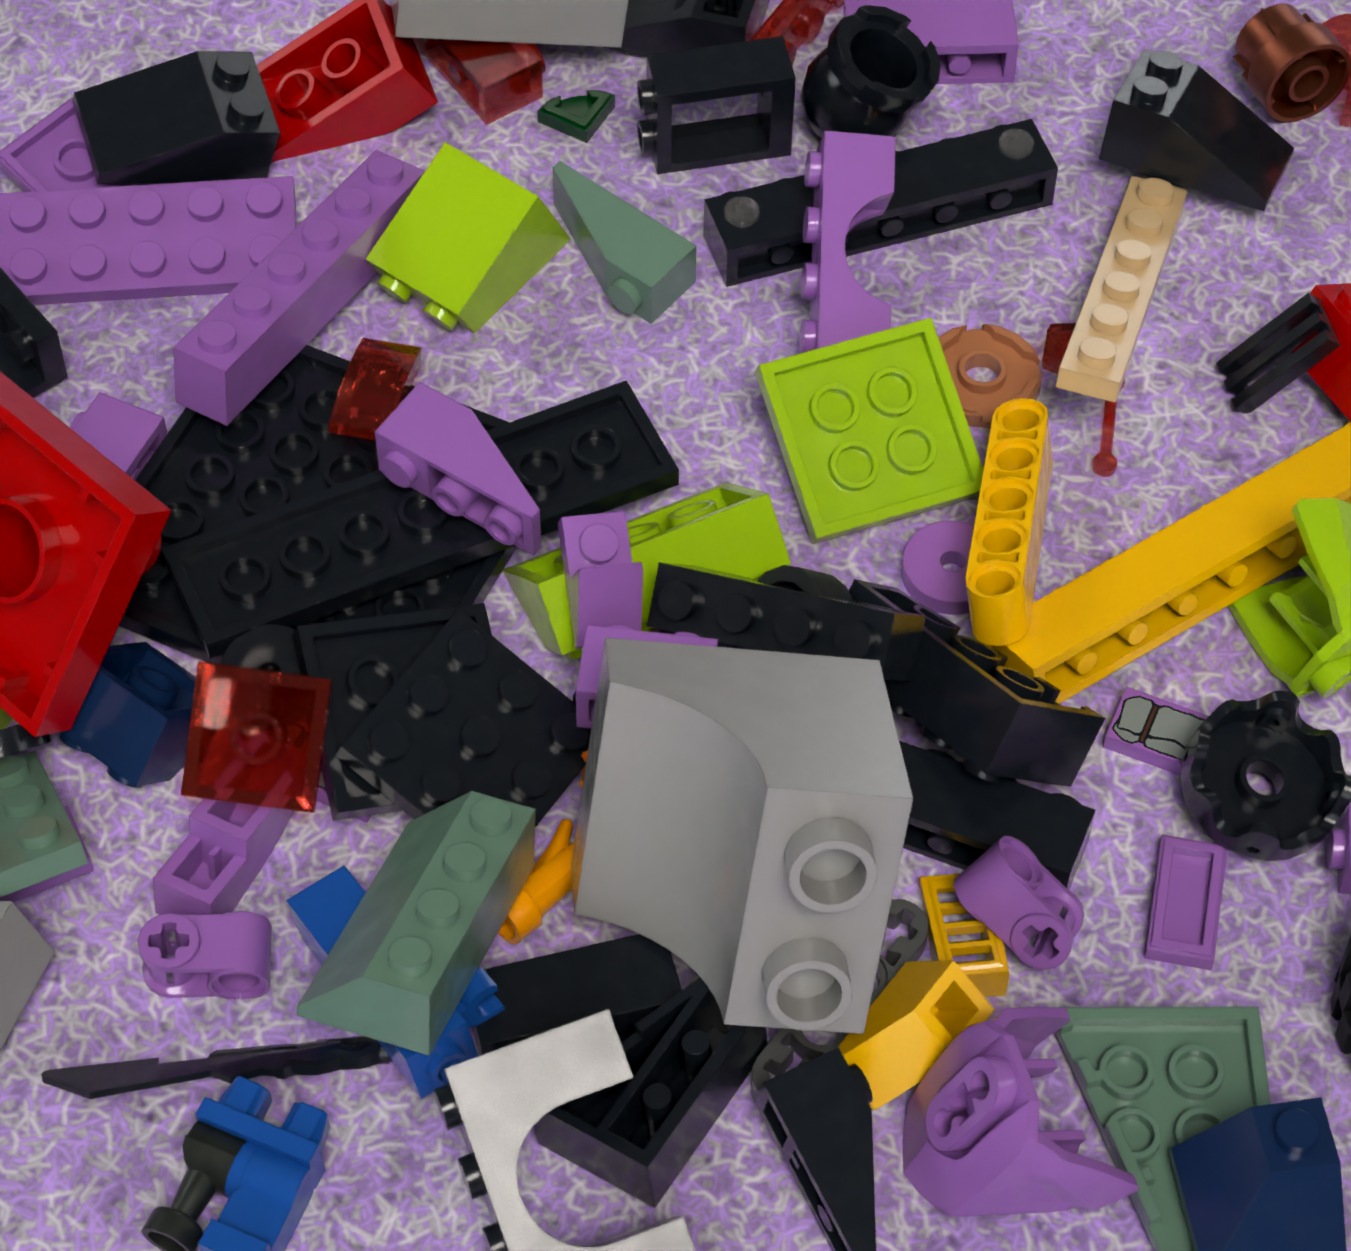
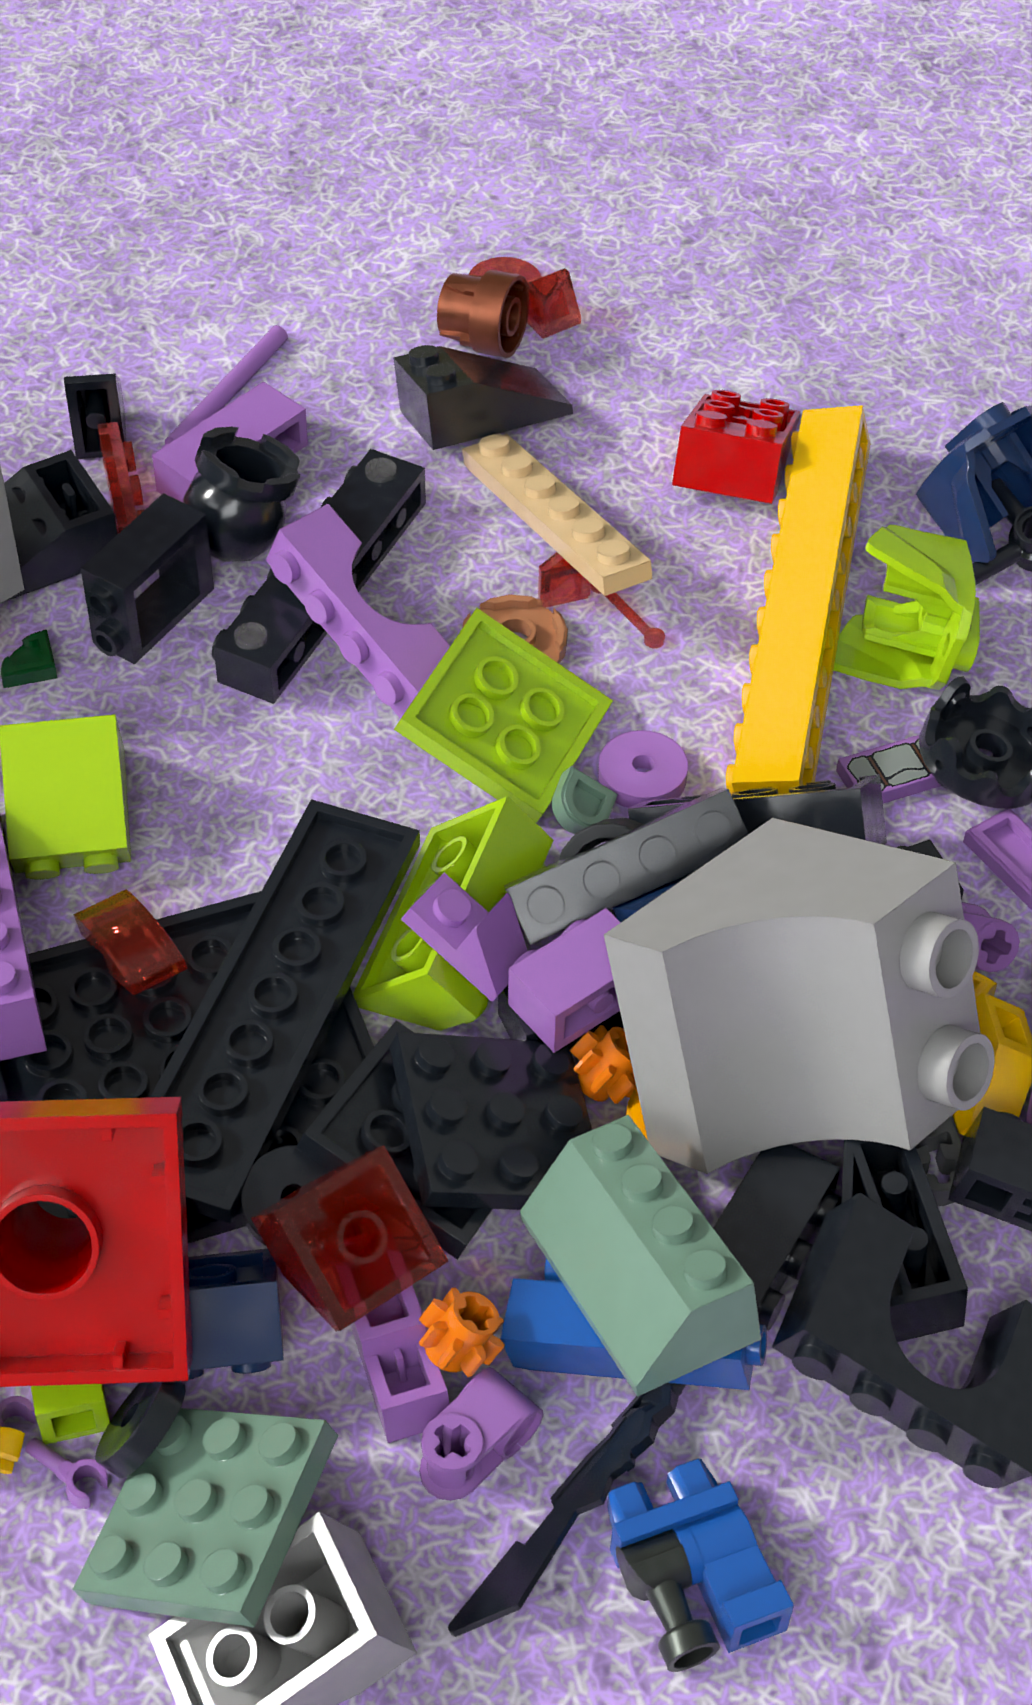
camera: 45 degrees left, 5 degrees down
(244, 862) = (461, 1332): none -> orange gear
(453, 460) = (278, 935): medium lavender slope -> none
(630, 254) = (179, 723): sand green slope -> none
(862, 553) = (581, 801): none -> sand green tile
(1009, 522) = (667, 705): yellow beam -> none
(1275, 346) = (675, 482): black tile -> none

